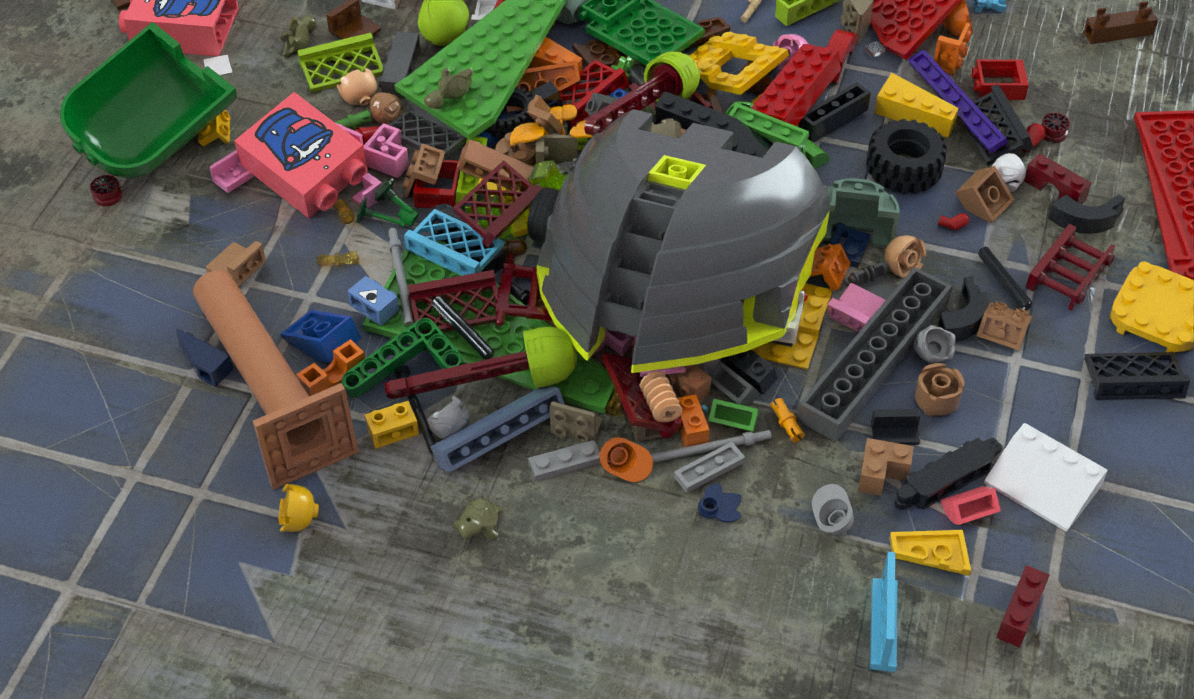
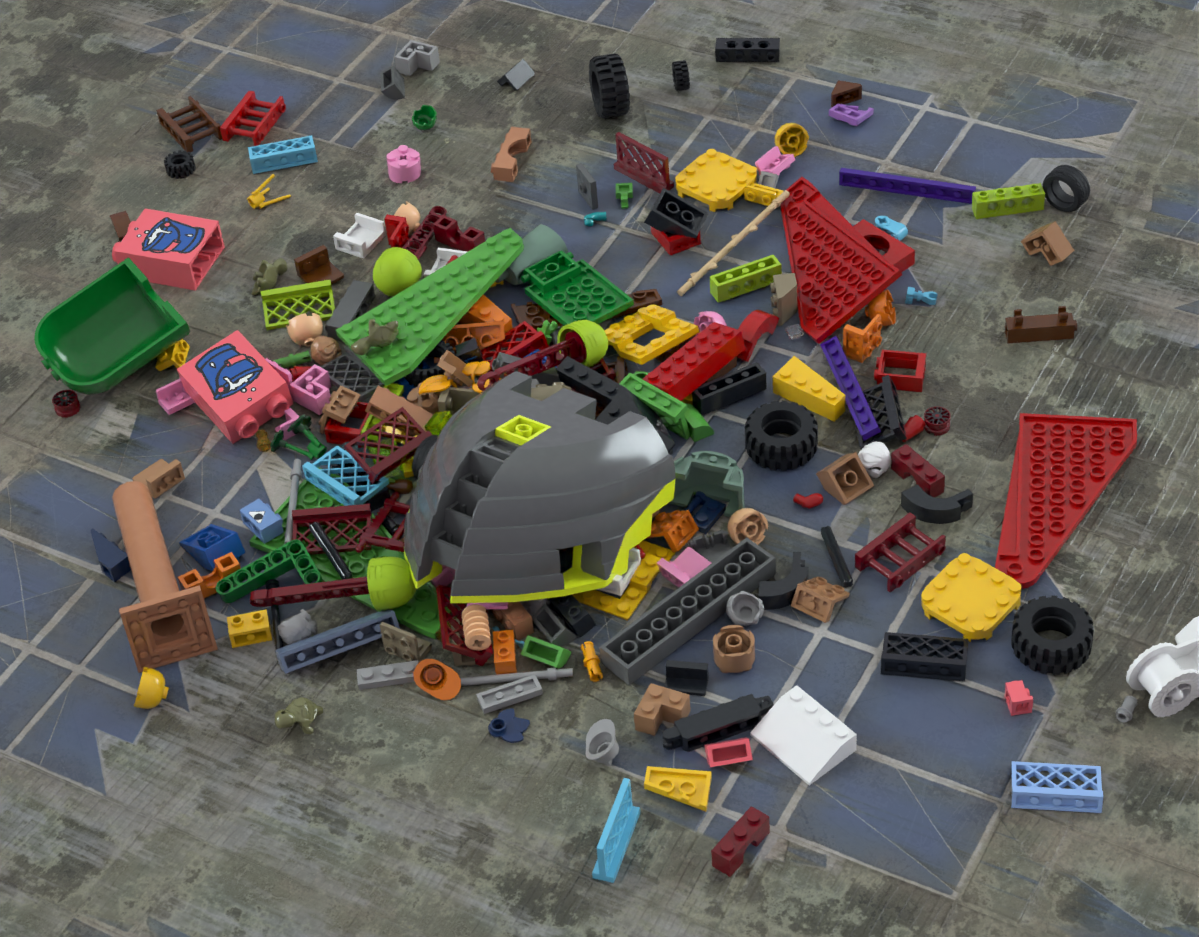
camera: 15 degrees right, 5 degrees down
(219, 64) = (192, 299): white sticker -> none
(347, 258) = (255, 481): clear yellow piece -> none

